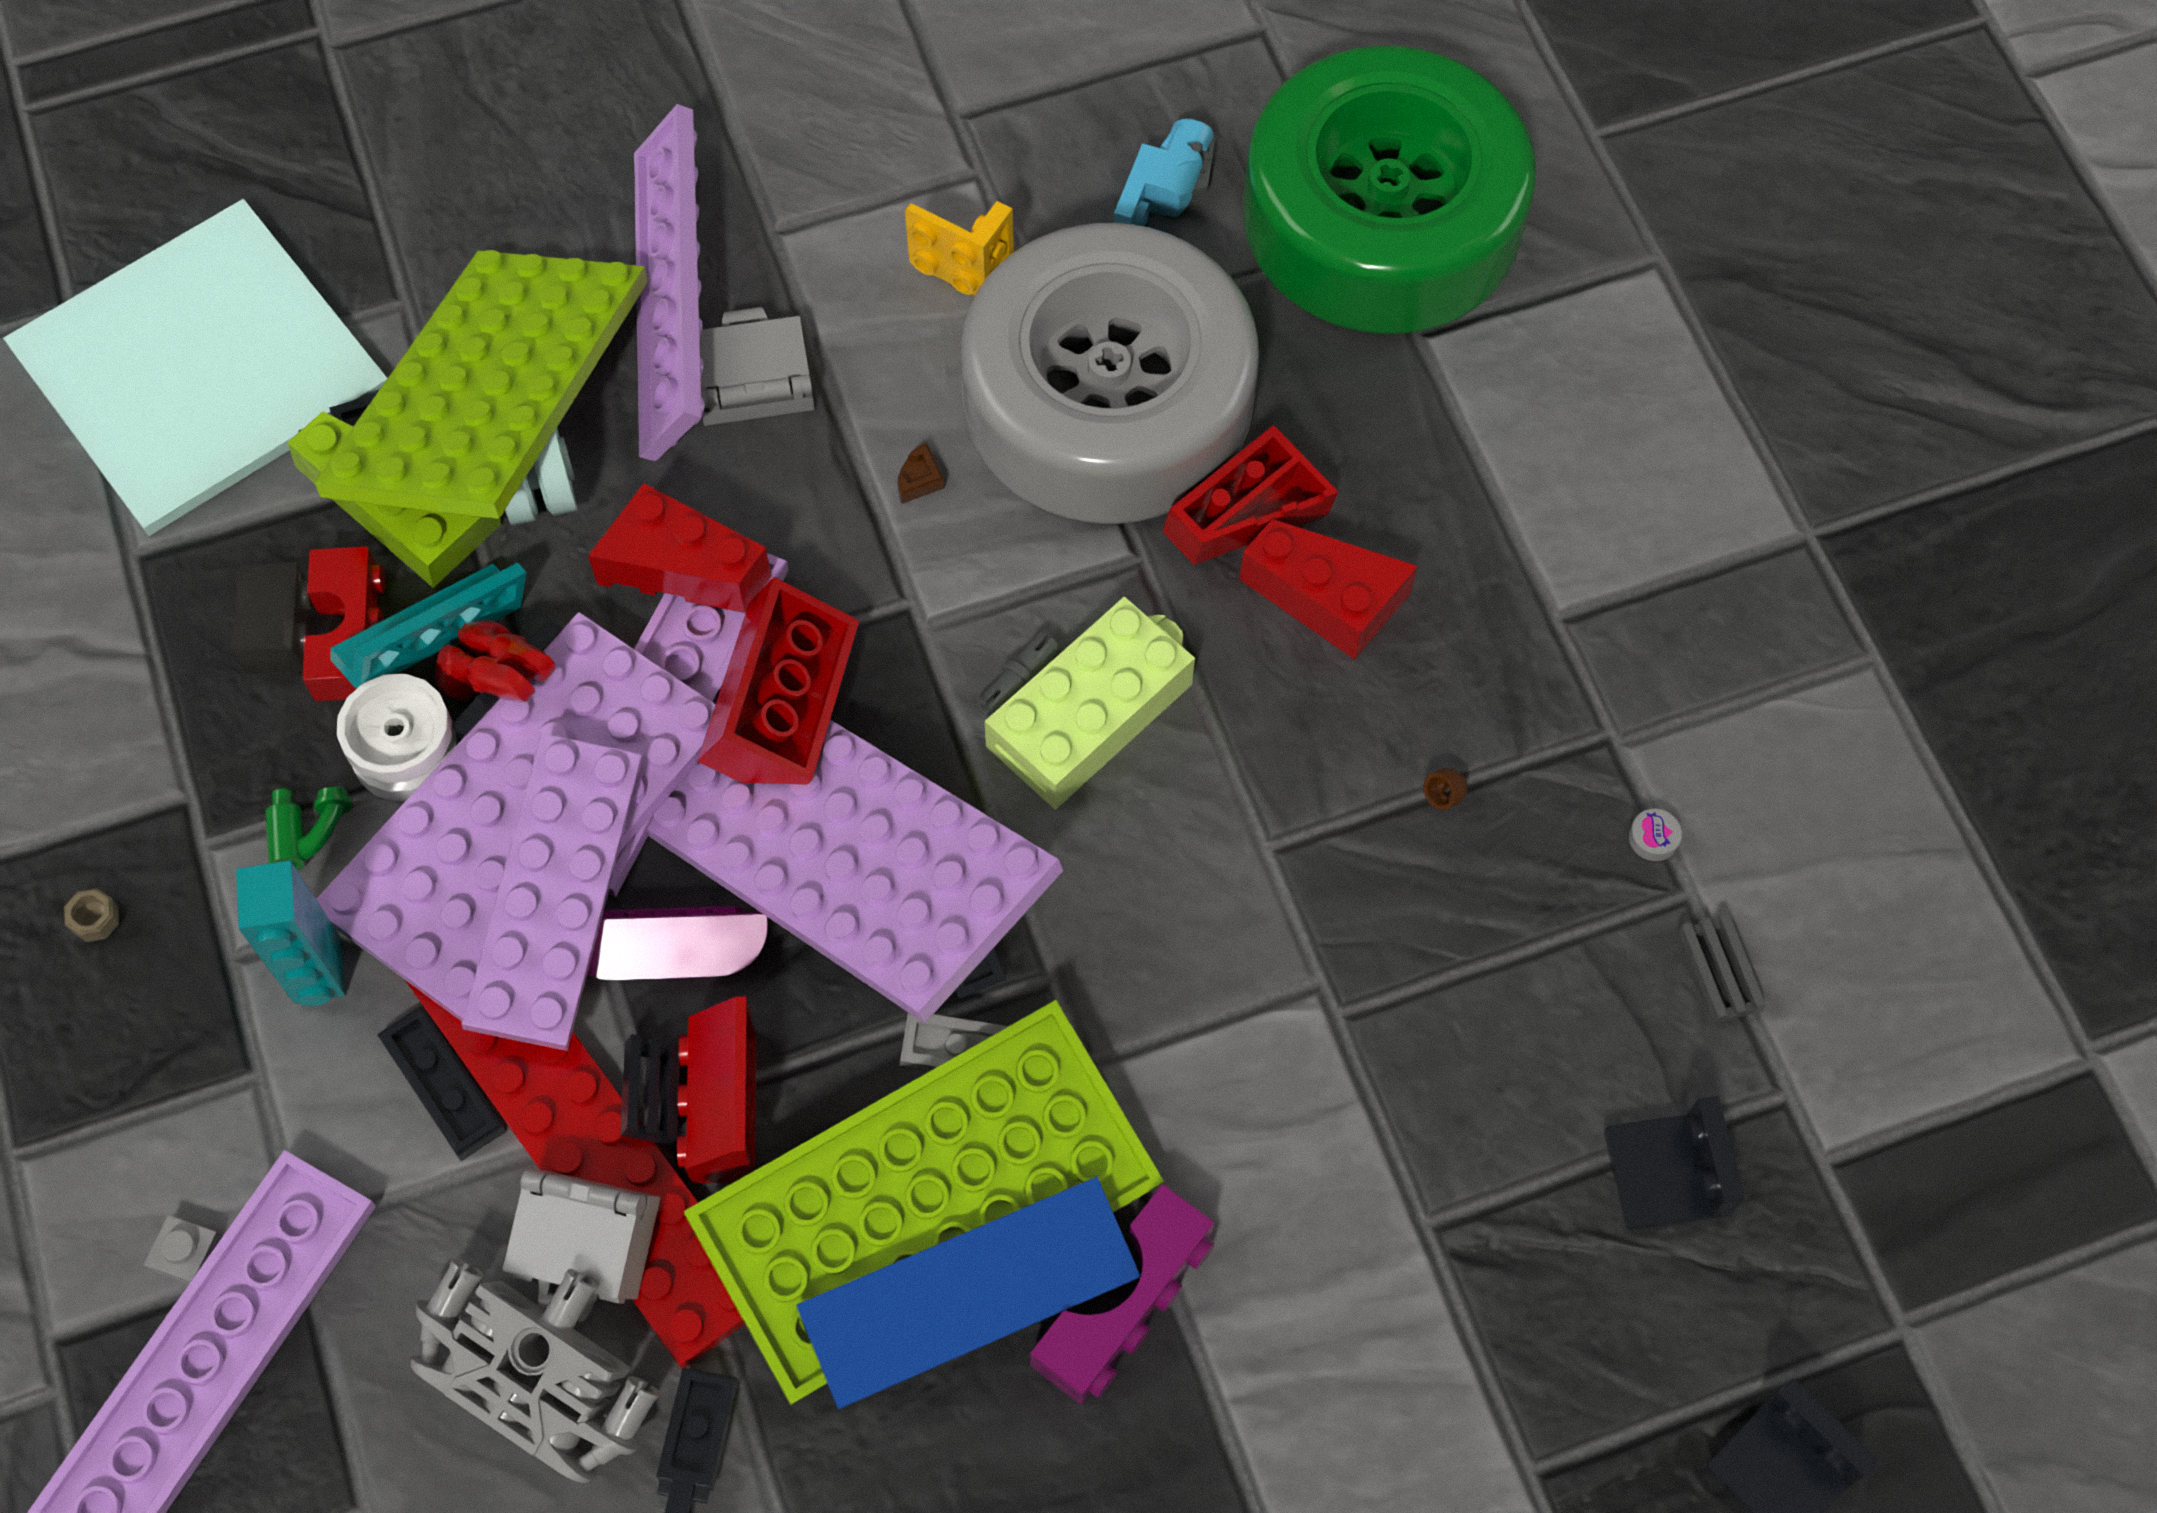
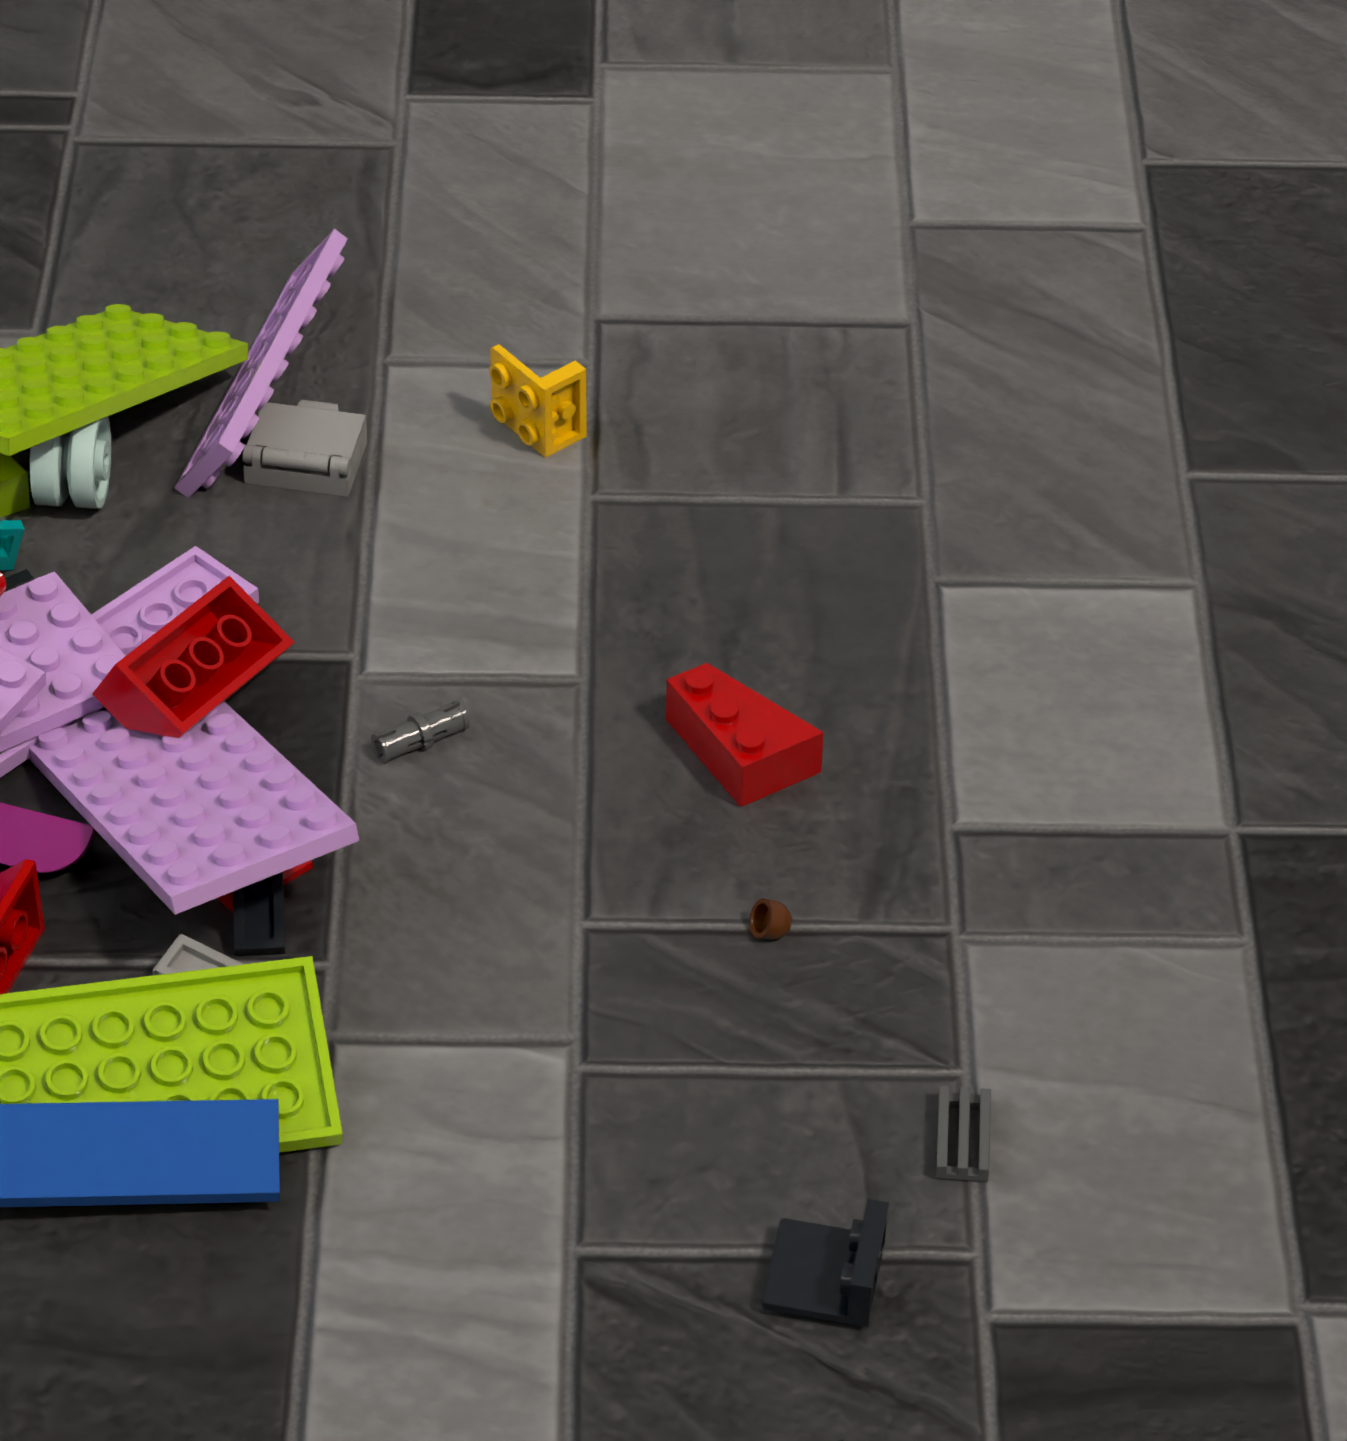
camera: 20 degrees right, 20 degrees down
(680, 553) = (157, 544): red wedge -> none
(919, 475) = (412, 565): reddish brown tile -> none
(1083, 1348) = (206, 1236): magenta arch -> none
(1091, 701) = (472, 761): yellowish green piece -> none
(1094, 288) = (610, 573): light grey wheel -> none
(1168, 175) = (750, 402): medium azure plate -> none
(1244, 495) = (709, 631): red wedge -> none
(1388, 115) = (946, 449): green wheel -> none
(1655, 834) = (953, 1013): light grey tile -> none

